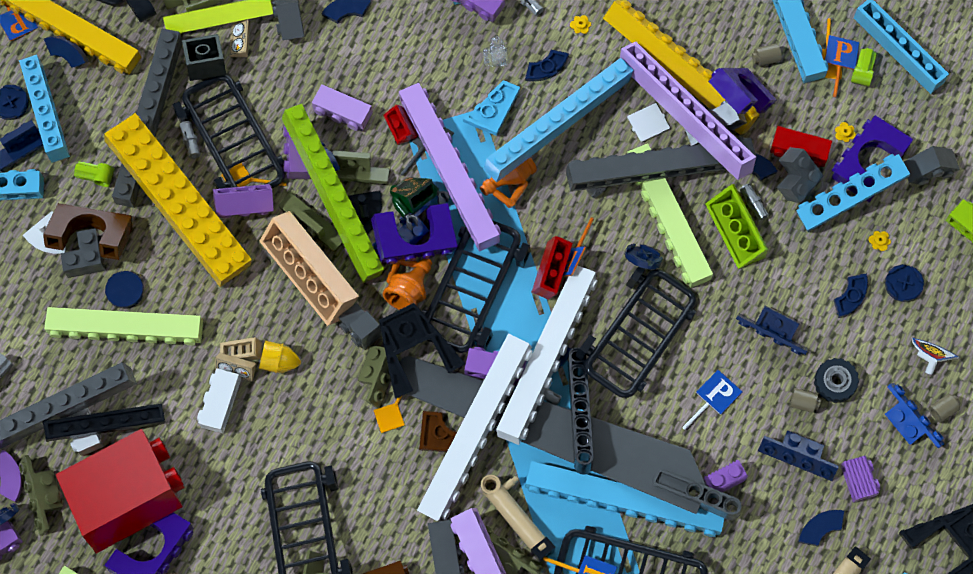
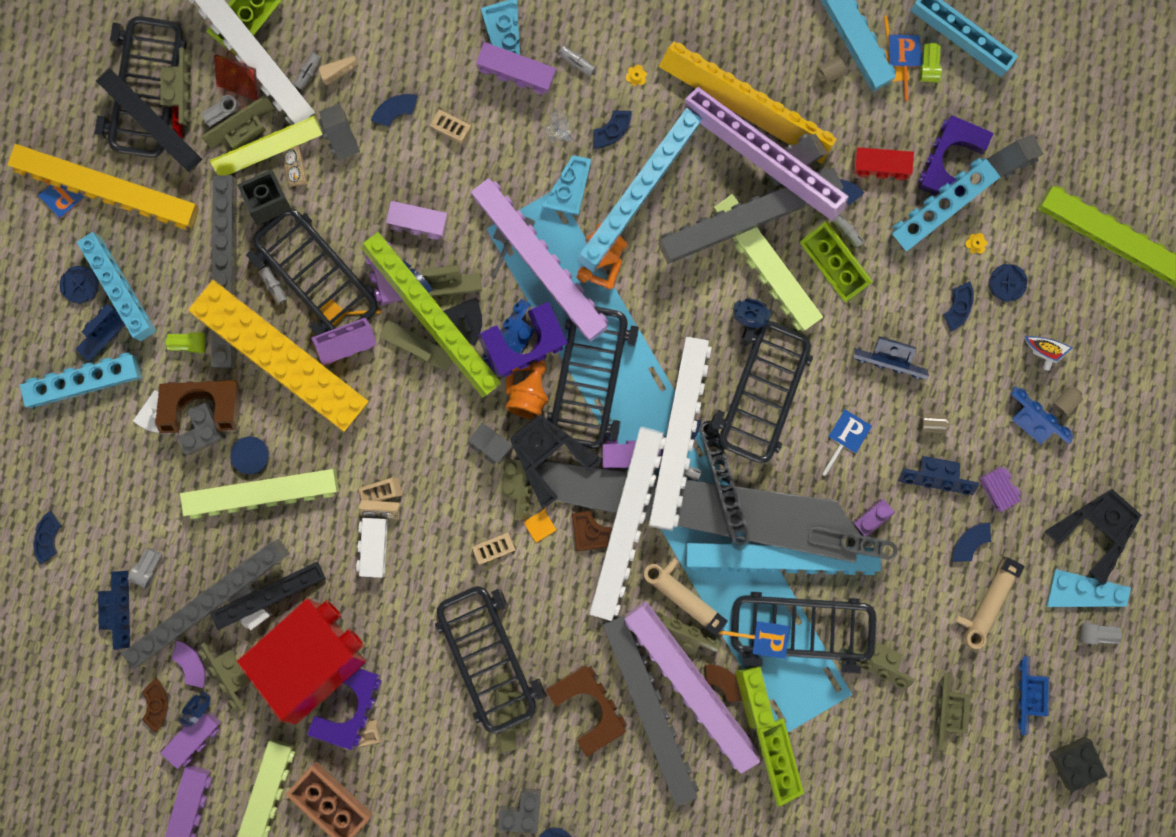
camera: 15 degrees left, 15 degrees up
(64, 48) = (115, 216): dark blue tile -> none
(278, 358) = (419, 493): yellow helmet -> none
(308, 267) = (426, 397): light nougat brick -> none
(338, 435) = (480, 560): none -> tan slope
(400, 124) = (479, 224): red slope -> none
(401, 45) = (464, 133): none -> tan slope
(414, 194) = (511, 299): dark green torso -> none
(552, 267) = (664, 343): red brick -> none
(576, 253) = (682, 328): piece -> none
(648, 122) = (726, 168): white piece -> none
(742, 89) = (816, 120): dark purple arch -> none
(801, 176) = (890, 195): dark grey brick -> none
(841, 135) = (924, 141): yellow plant -> none
(841, 369) = (971, 391): black wheel -> none

